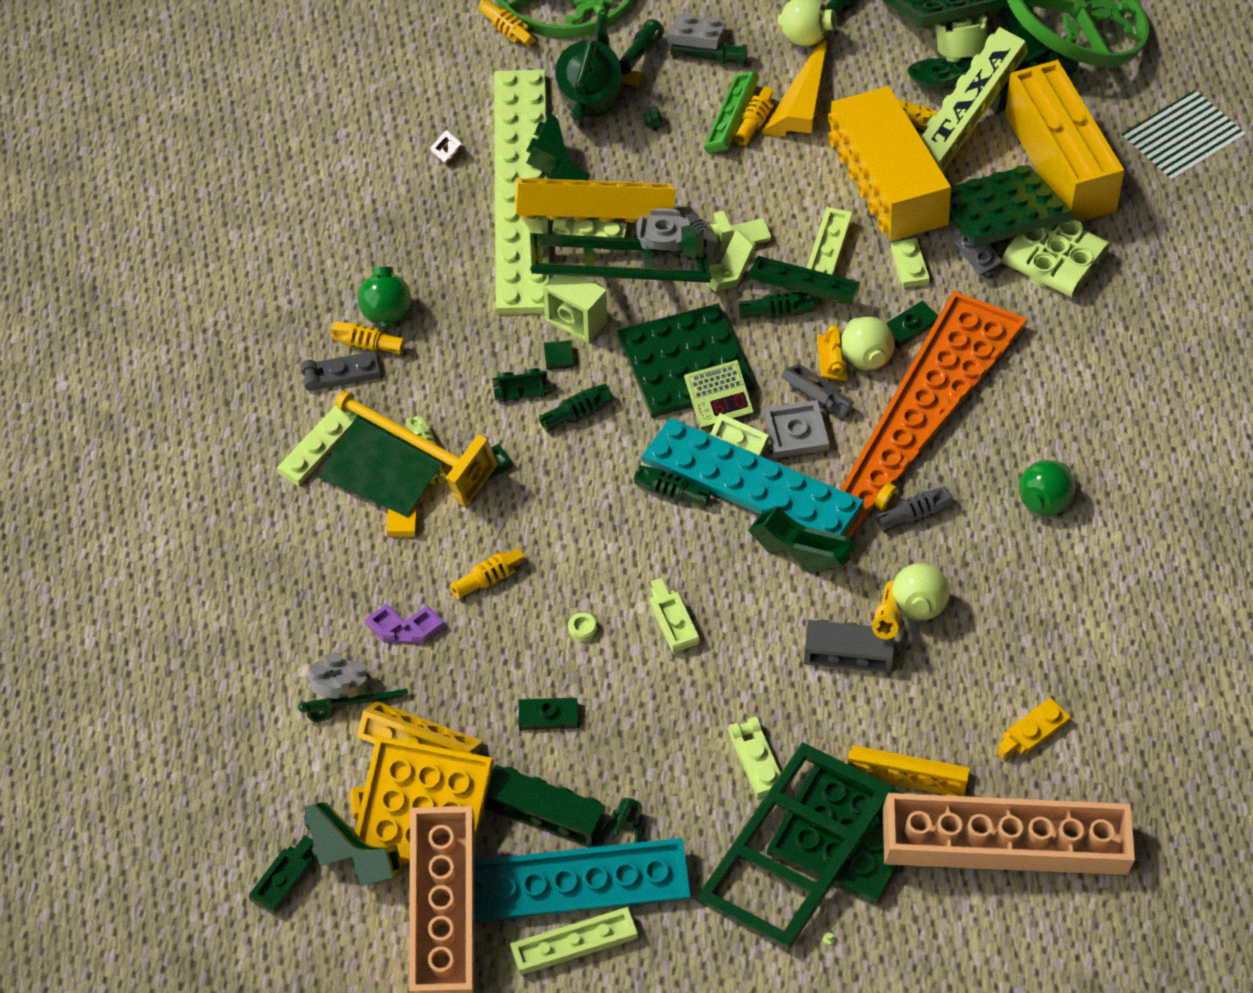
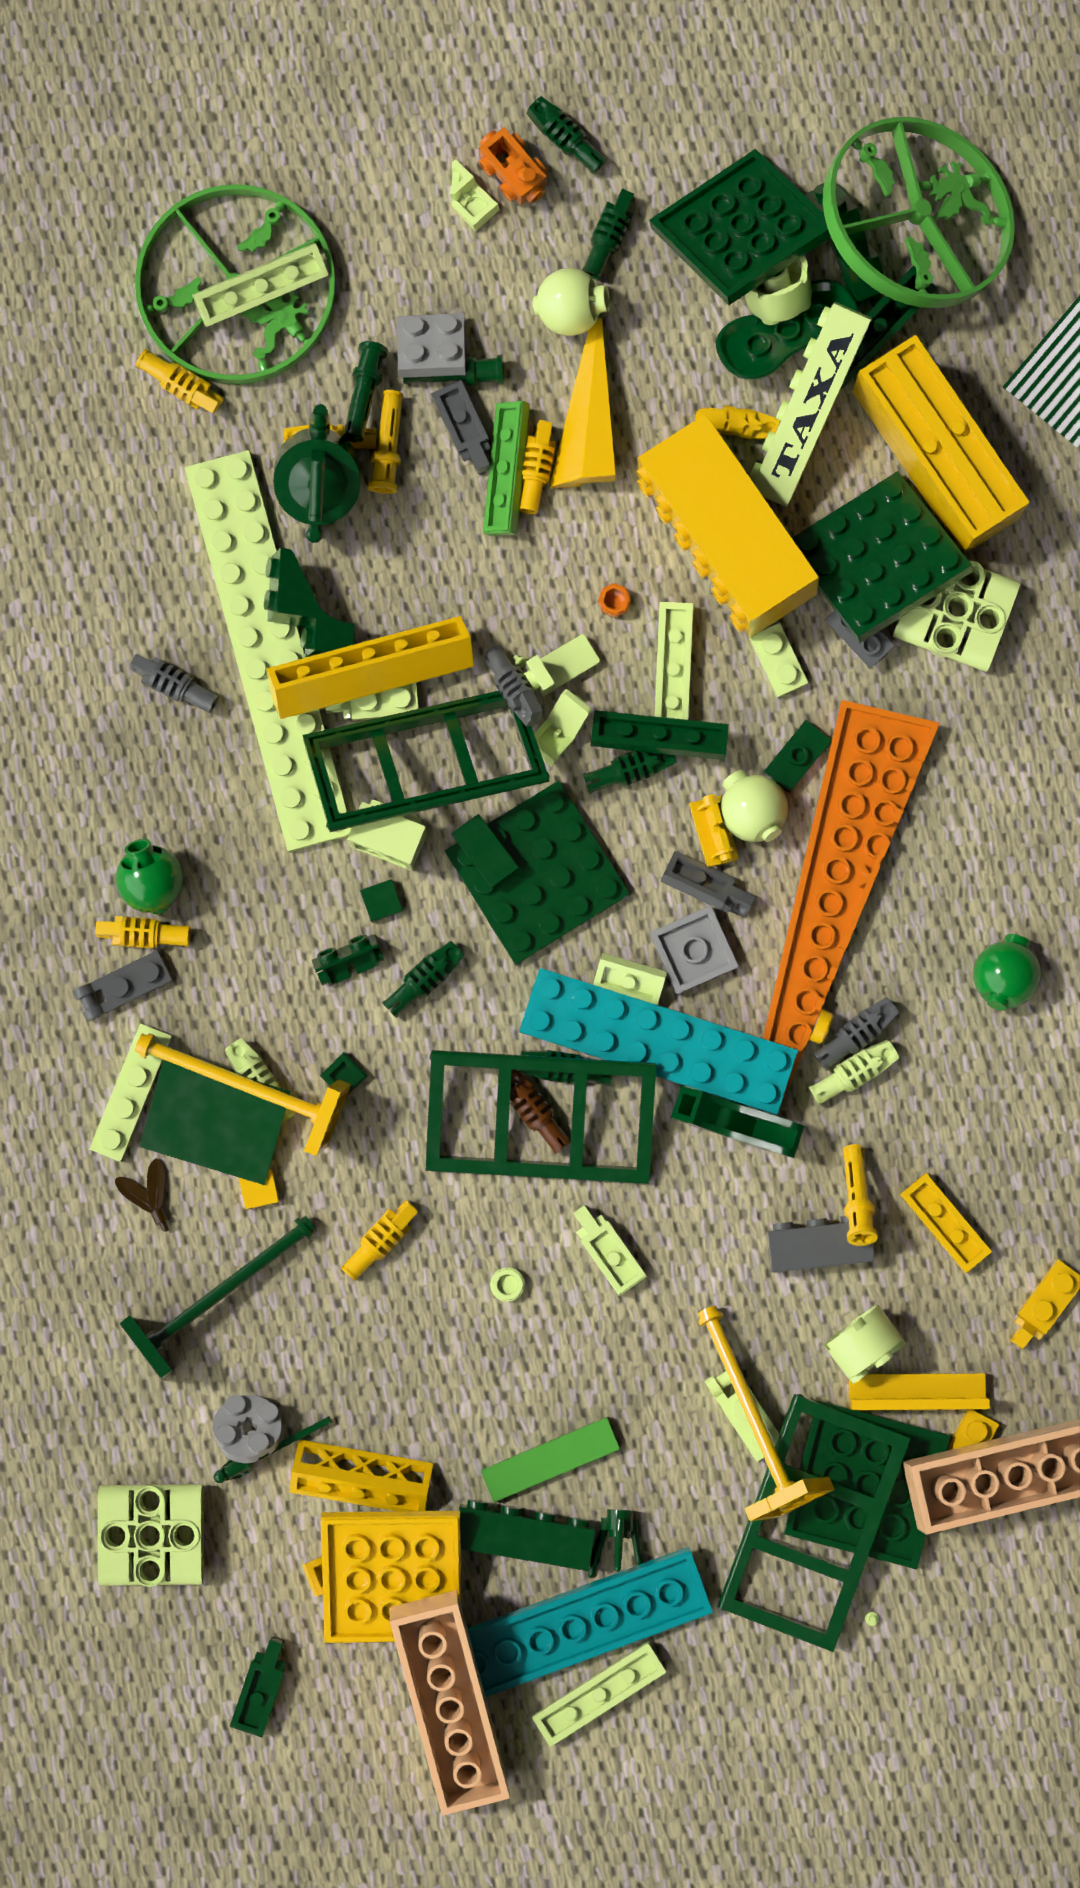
camera: 15 degrees left, 30 degrees up
(244, 760) = (116, 1559): none -> yellowish green connector
(277, 599) = (152, 1343): none -> dark green tile
(314, 513) = (149, 1200): none -> dark brown piece
(337, 841) = (314, 1647): dark green arch -> none
(393, 629) = (289, 1338): medium lavender tile -> none
(442, 192) = (173, 682): none -> dark grey hinge
(447, 148) = (159, 609): tile -> none
(548, 713) = (497, 1410): dark green plate -> none
(583, 758) = (550, 1459): none -> bright green tile
(638, 509) = (536, 1111): none -> reddish brown hinge
(648, 330) = (485, 851): none -> dark green tile
(650, 231) = (467, 714): light grey plate -> none
(652, 118) = (407, 500): dark green plate -> none
(657, 64) = (386, 456): none -> yellow pin
(658, 557) = (500, 1164): none -> dark green door
(692, 242) = (511, 716): dark green tile -> none
(707, 82) = (463, 424): none -> dark grey hinge
(717, 392) = (591, 924): tile -> none
(782, 798) = (788, 1494): none -> yellow tile
(792, 203) = (614, 600): none -> orange tile
(870, 714) = (864, 1344): none -> yellowish green brick
(908, 533) = (855, 1071): none -> yellowish green hinge
(921, 591) = (889, 1160): yellowish green brick -> none
(959, 652) = (945, 1223): none -> yellow plate

